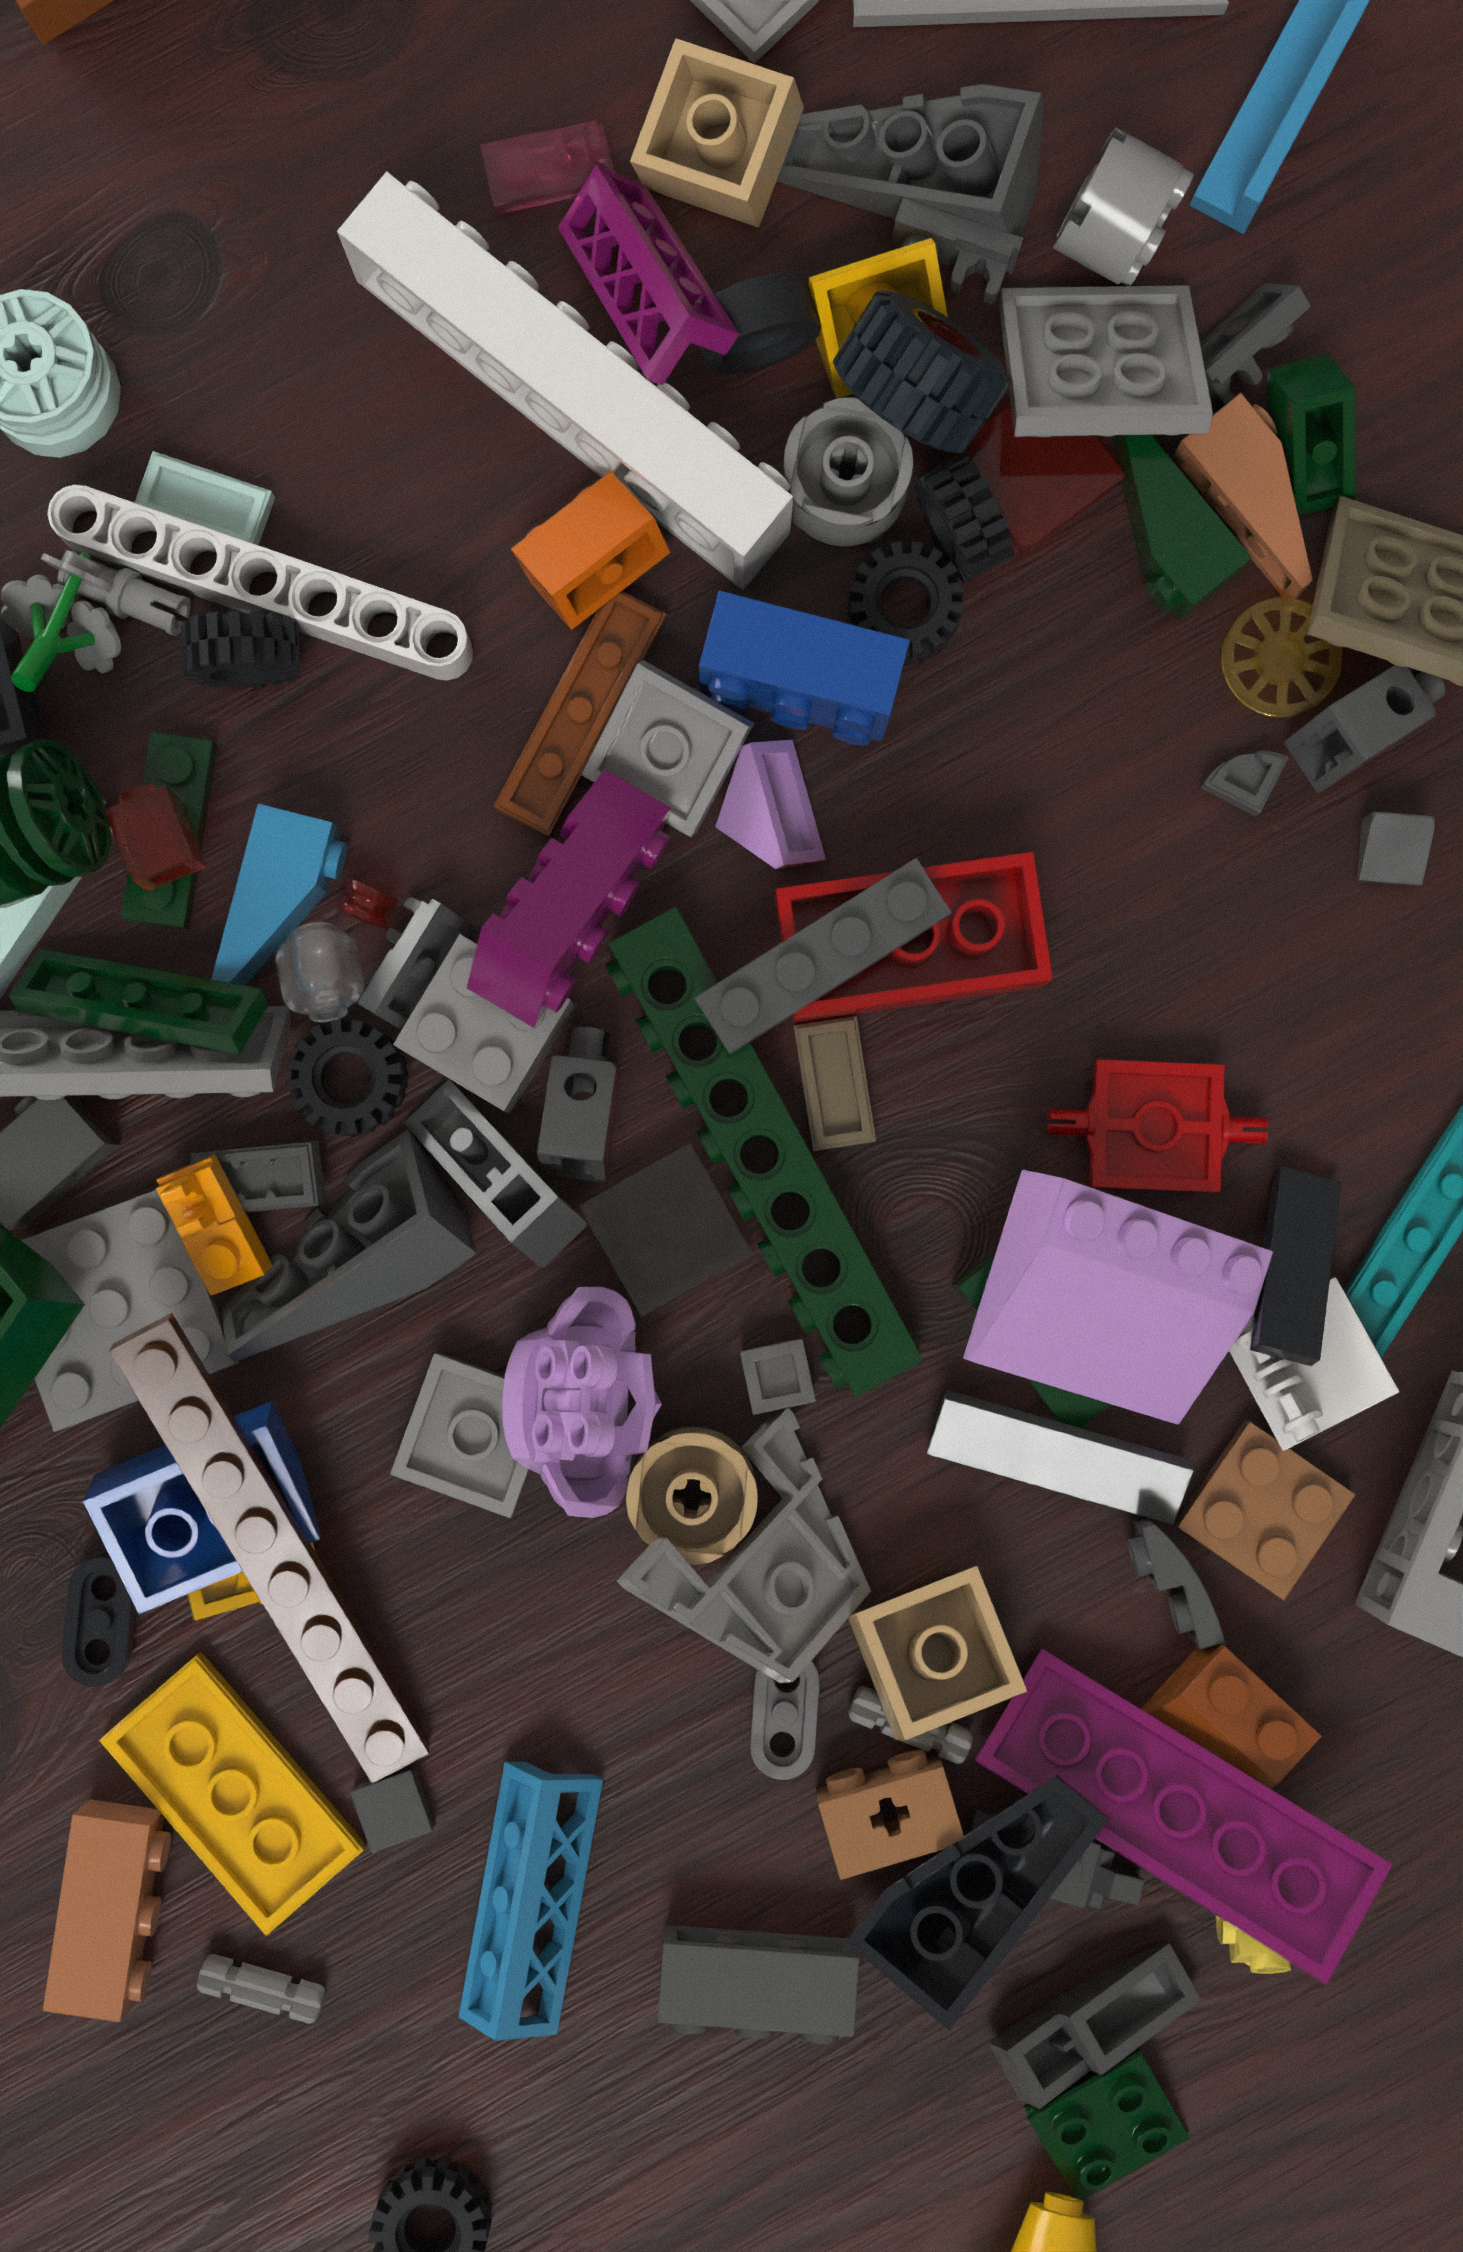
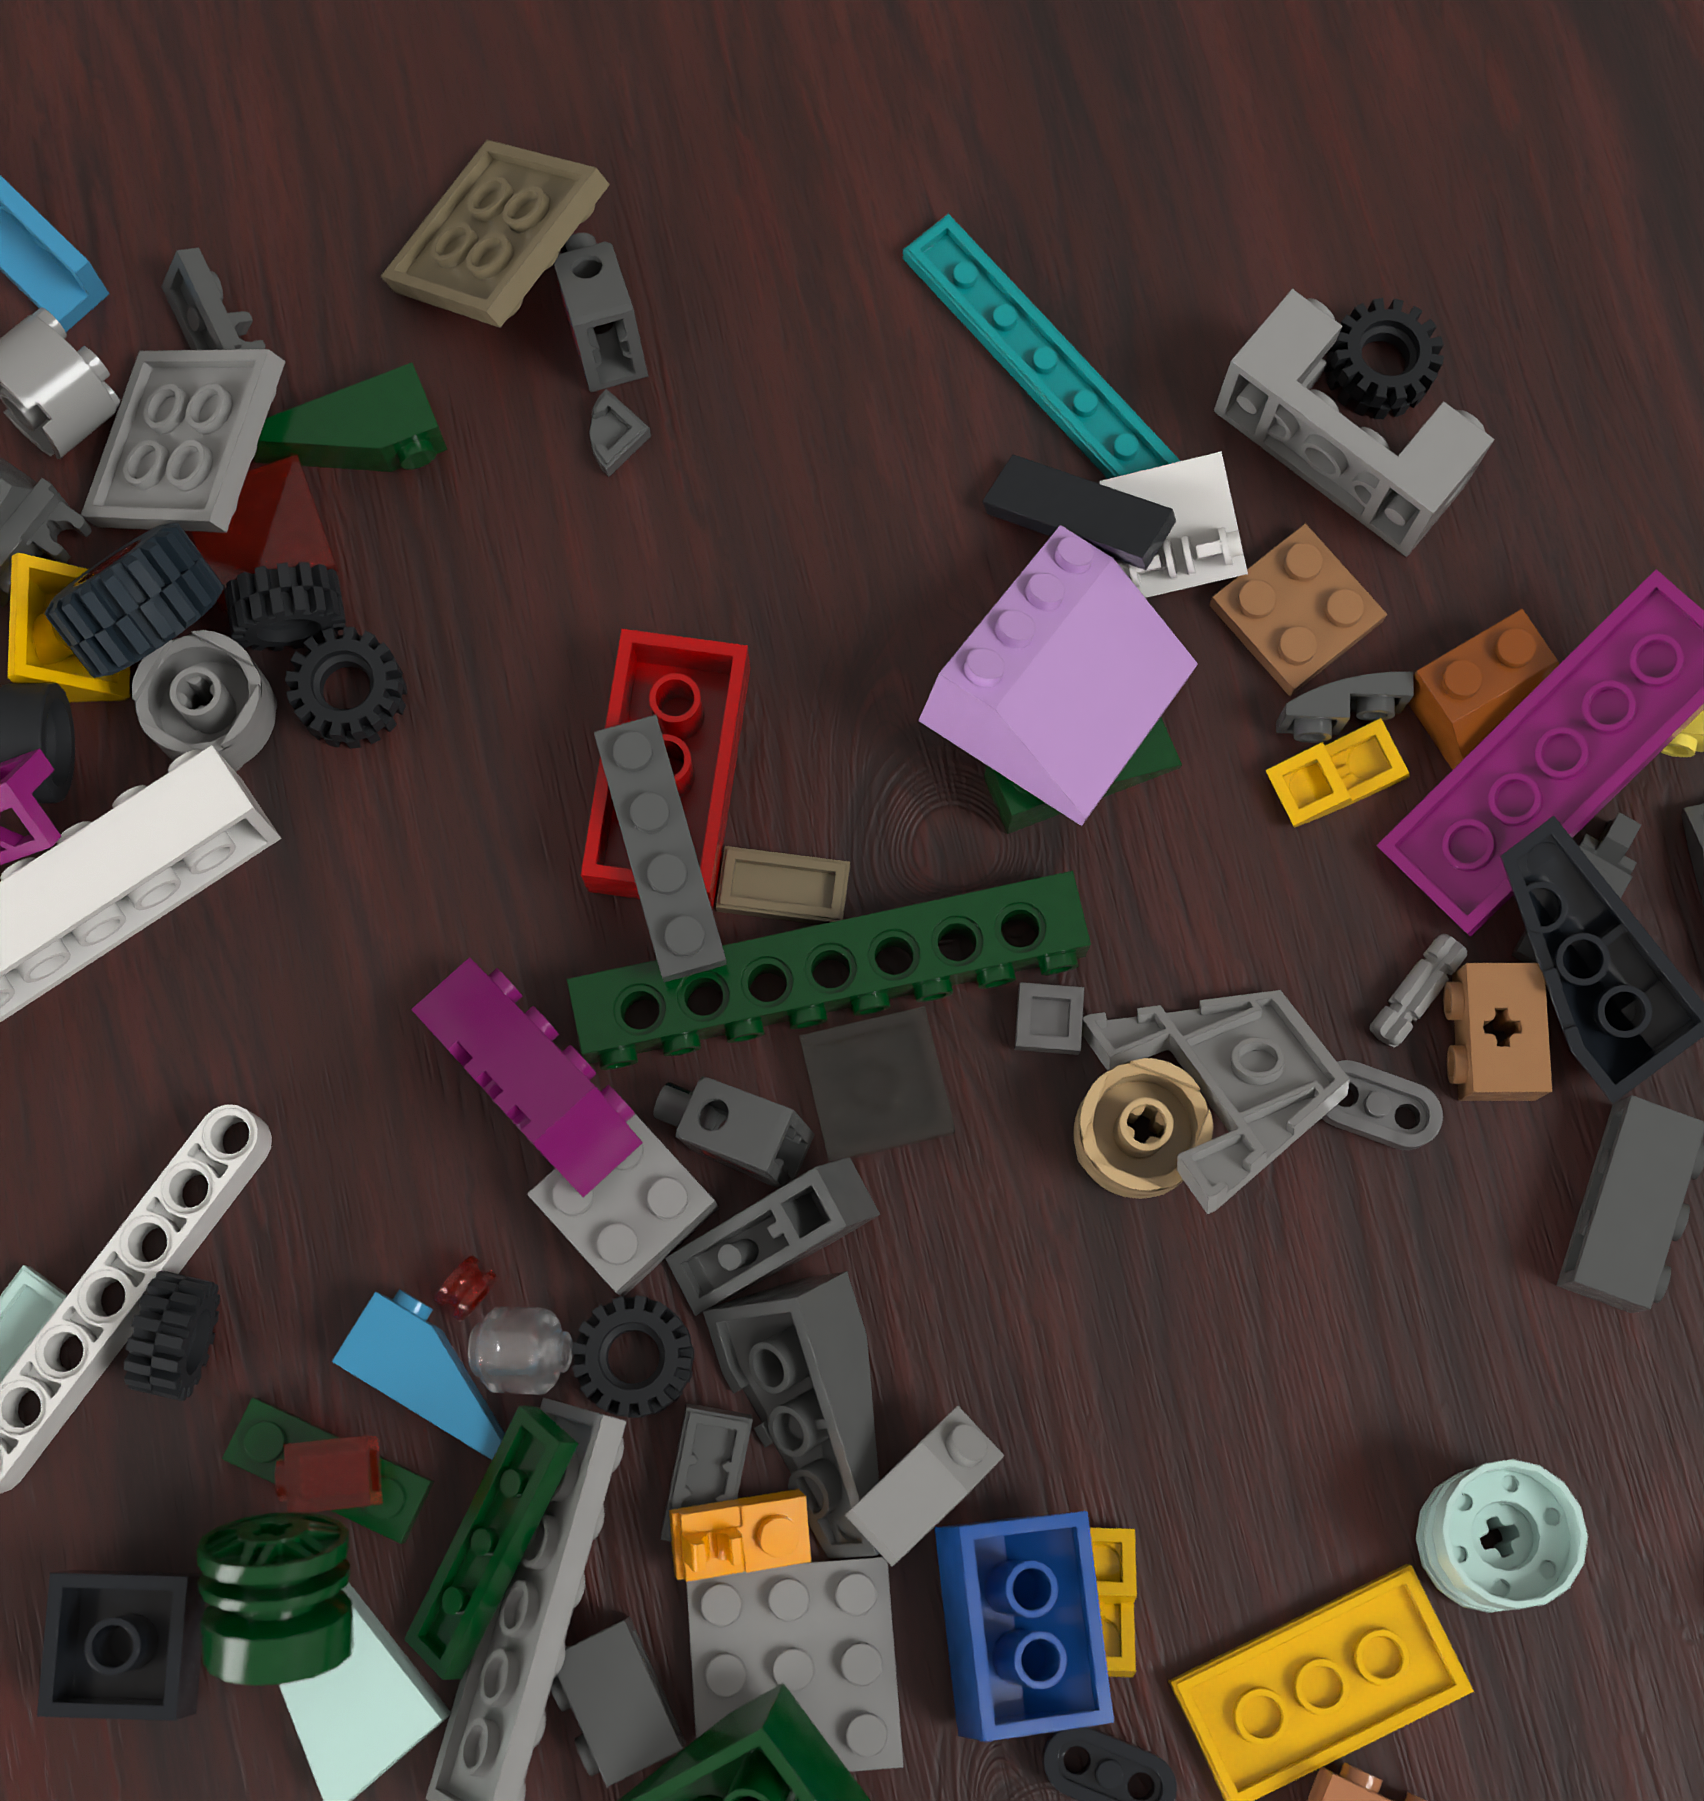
camera: 75 degrees left, 10 degrees down
(43, 611) = (78, 1515): light grey plant -> none
(135, 598) = (72, 1445): light grey pin -> none
(260, 1988) = (1526, 1713): light grey axle -> none
(270, 1546) = (1079, 1561): plate -> none
(300, 1382) = (924, 1486): none -> light grey slope
(392, 1809) = (1376, 1524): dark grey tile -> none
(403, 1966) = (1538, 1527): none -> light aqua wheel
(413, 961) = (541, 1254): dark grey plate -> none
(459, 1438) = (1025, 1332): light grey plate -> none
(518, 1904) = (1498, 1418): dark azure fence -> none
(571, 1401) = (1017, 1223): lavender piece -> none
(578, 713) = (347, 1025): dark orange tile -> none
(591, 550) = (193, 964): orange brick -> none
(670, 744) = (407, 942): light grey plate -> none
(770, 806) = (498, 870): lavender slope -> none
(801, 668) = (377, 793): blue brick -> none
(937, 1654) = (1357, 938): tan brick -> none
(1059, 1457) = (1198, 779): tile -> none
(1105, 1591) = (1337, 773): none -> yellow slope
(1157, 1126) = (911, 600): red plate -> none
(1248, 486) = (345, 346): nougat slope -> none
(1279, 659) = (511, 370): clear yellow wheel -> none
(1316, 425) = (313, 281): dark green slope -> none
(1394, 848) = (719, 321): dark grey slope -> none

